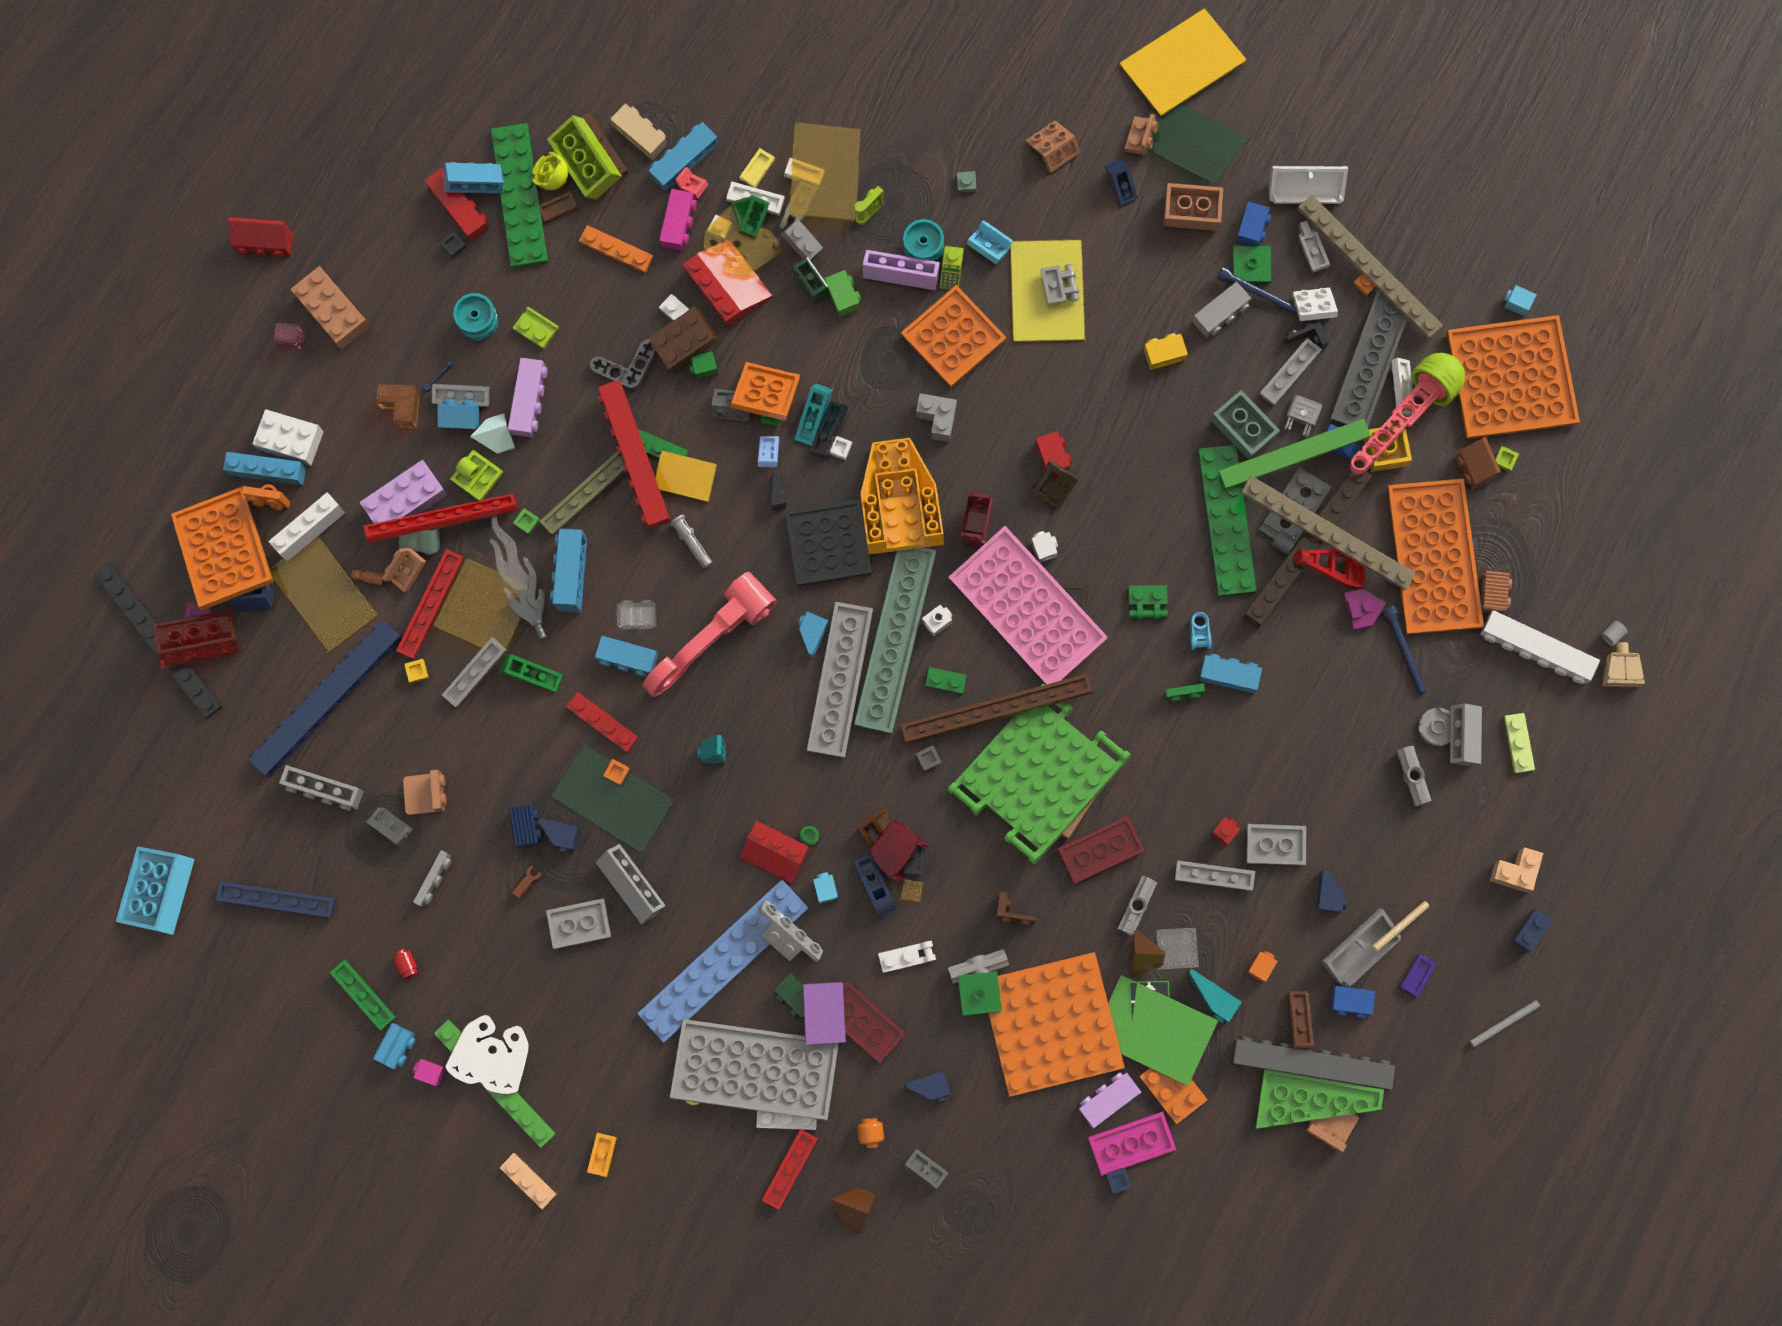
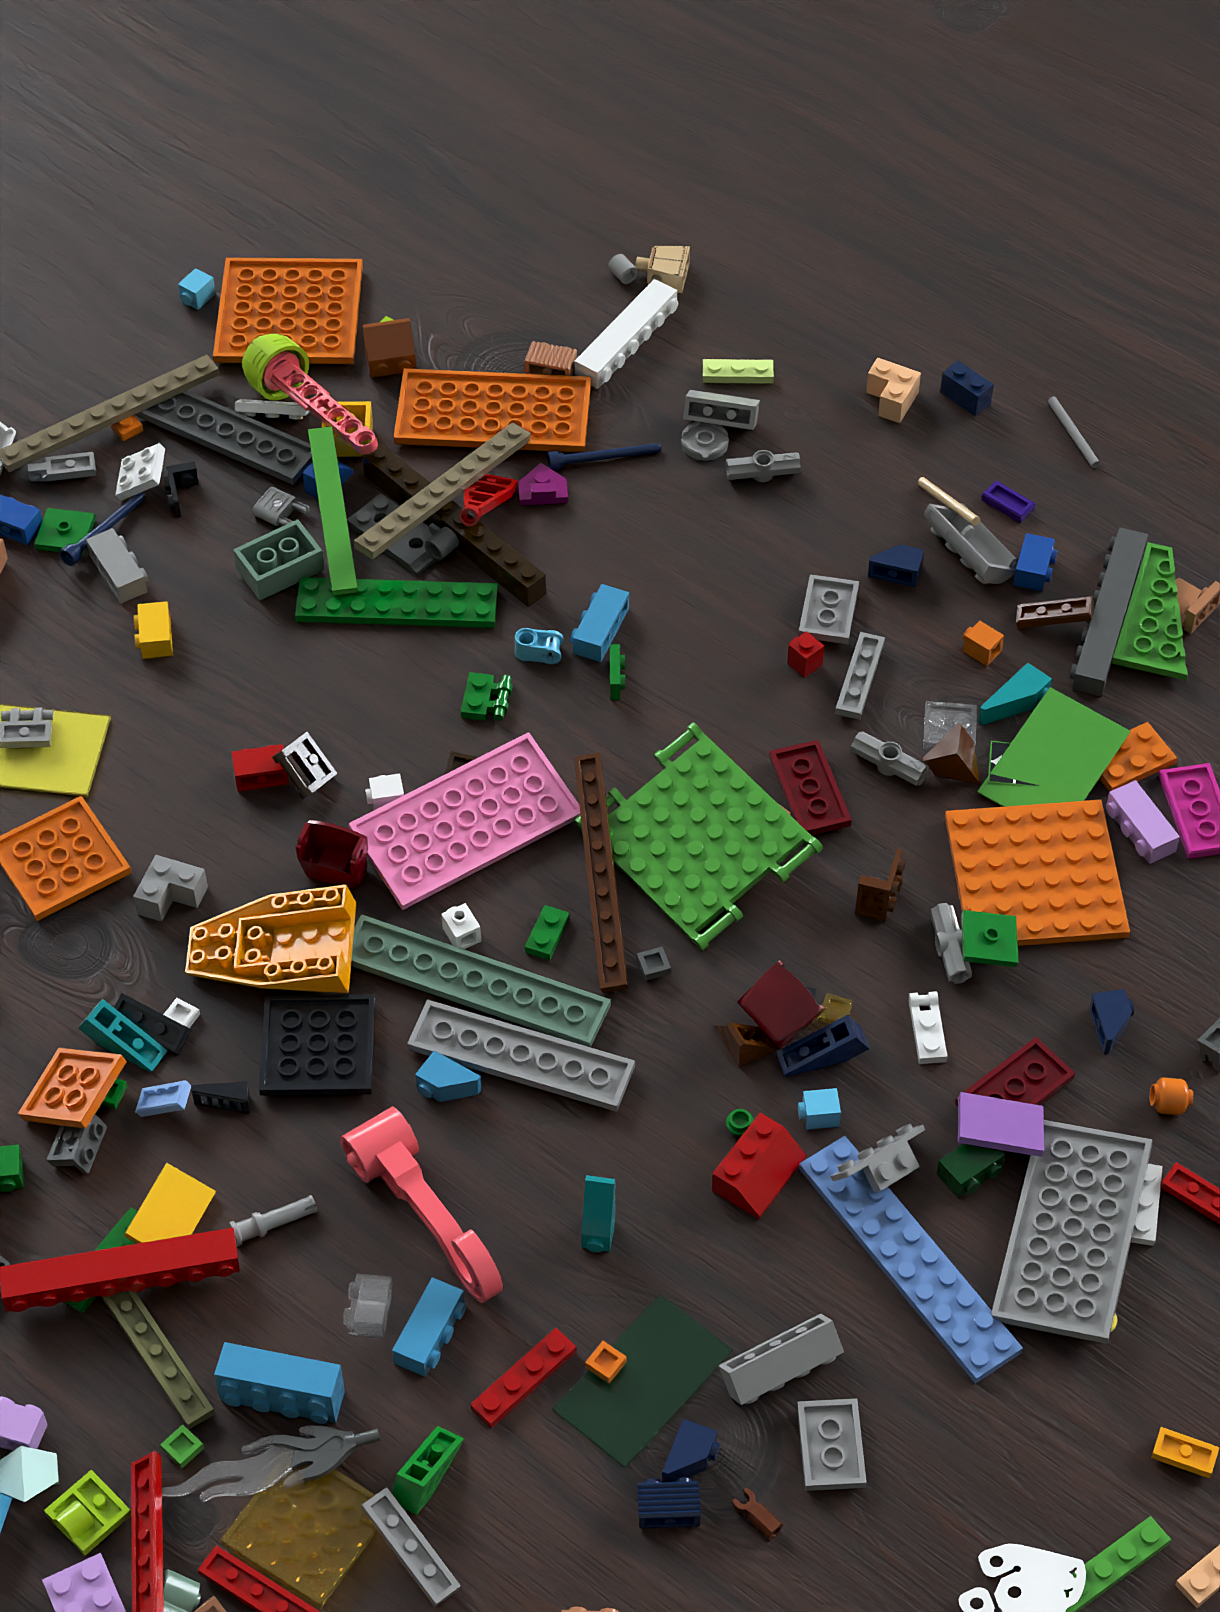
camera: 85 degrees left, 25 degrees down
(1290, 372) = (220, 511): light grey plate -> none

